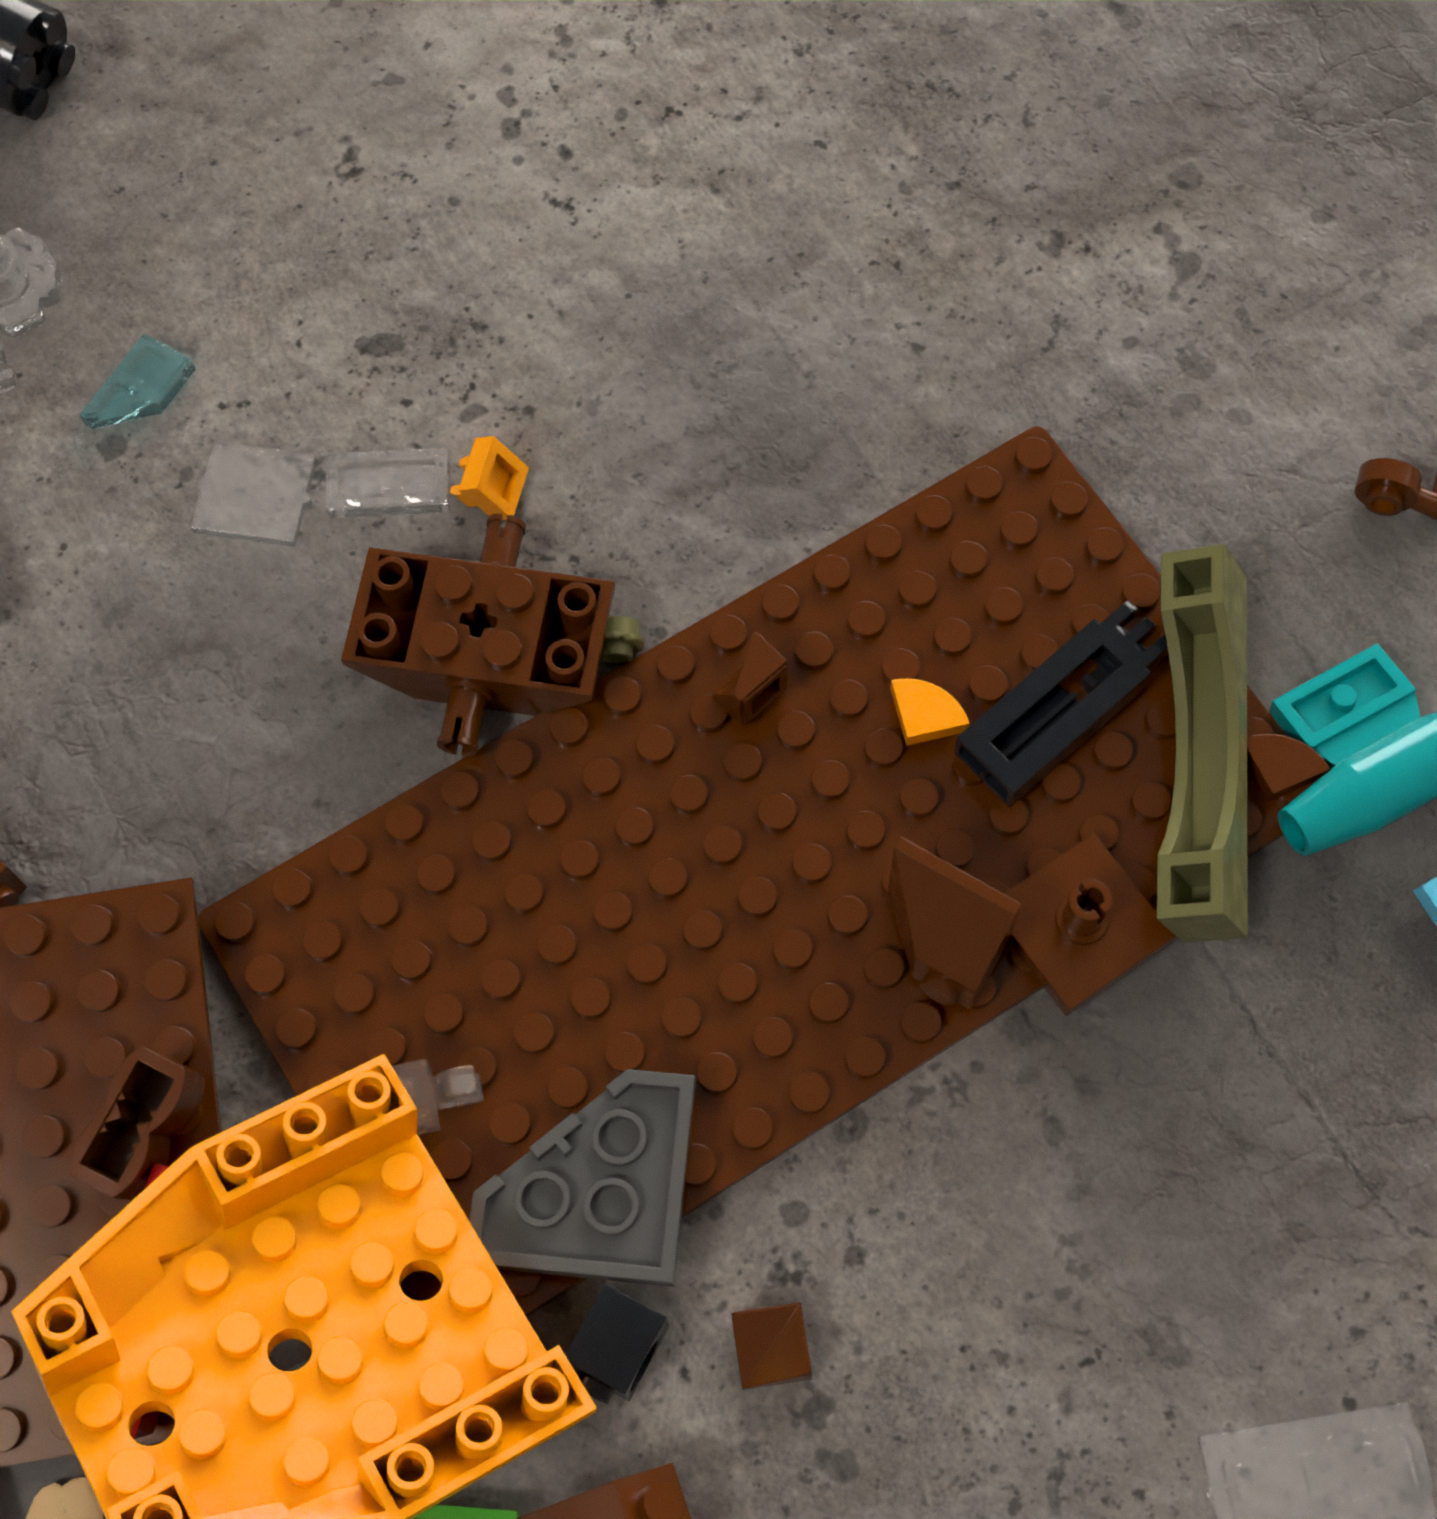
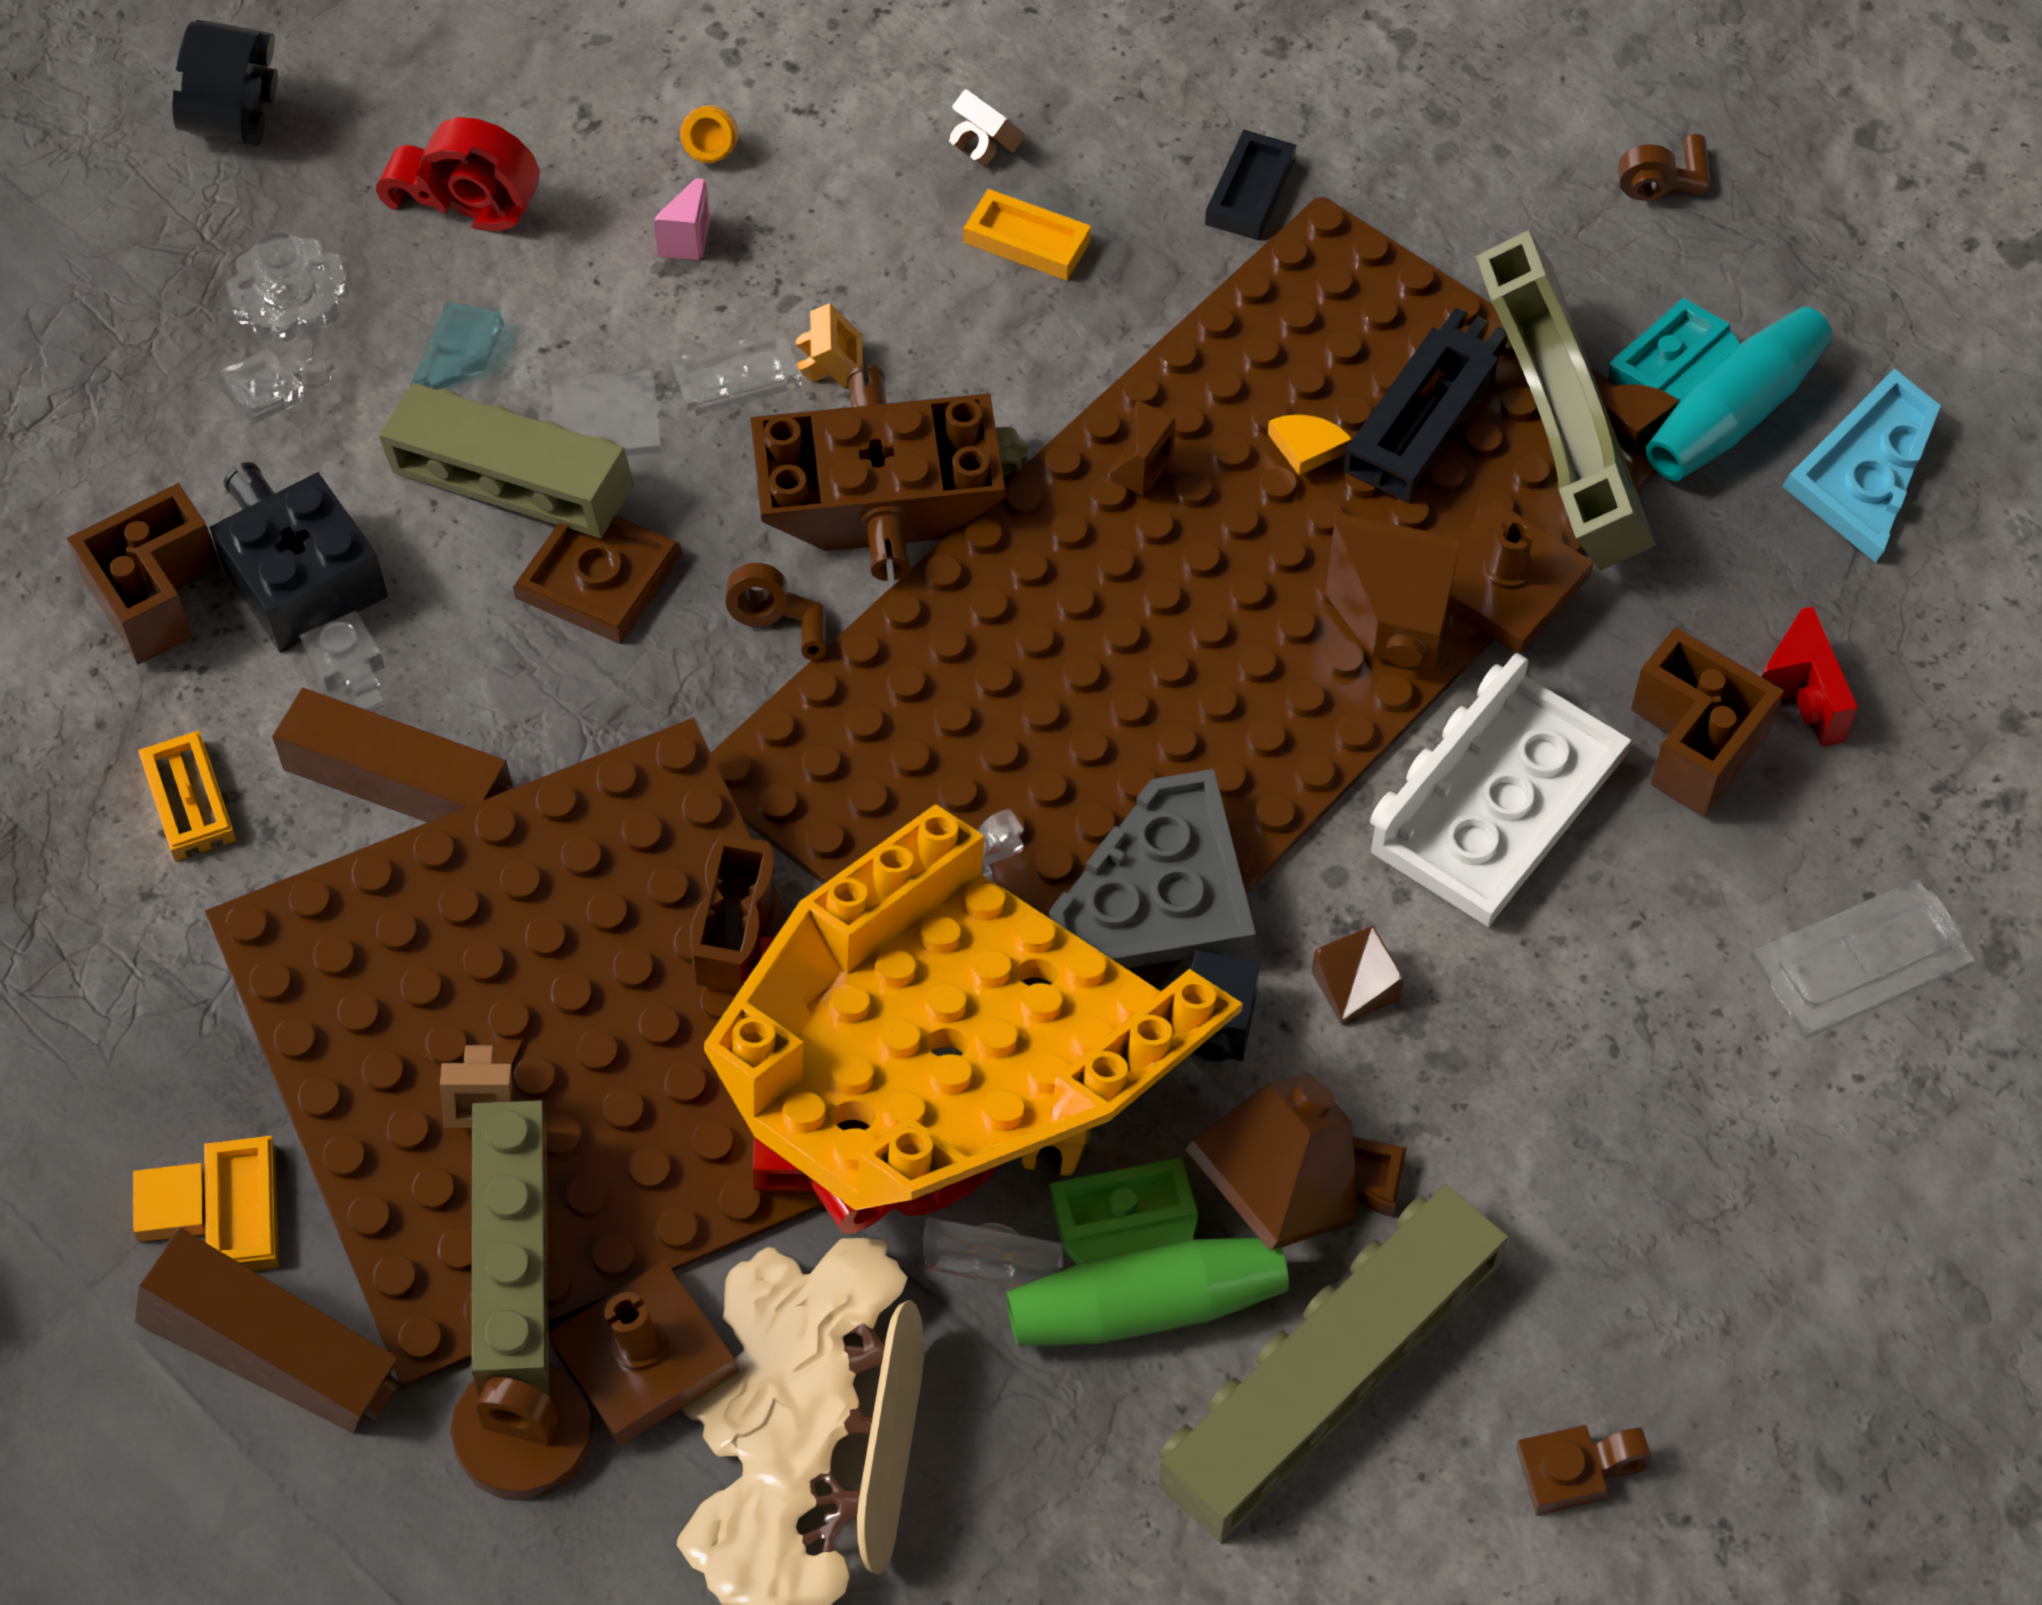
camera: 20 degrees left, 10 degrees down
(134, 525) = (507, 459): none -> olive brick
(186, 665) = (598, 580): none -> reddish brown tile
(201, 198) = (466, 168): none -> red piece
(327, 742) = (768, 605): none -> reddish brown plate
(396, 304) = (684, 223): none -> bright pink slope
(453, 211) = (709, 133): none -> light orange tile
(728, 266) = (985, 124): none -> tile
(729, 396) = (1027, 234): none -> light orange tile
(972, 395) = (1250, 185): none -> black tile
(987, 1174) = (1495, 792): none -> white bracket
(1248, 1154) = (1713, 717): none -> reddish brown brick
(1369, 1118) = (1809, 670): none -> red slope

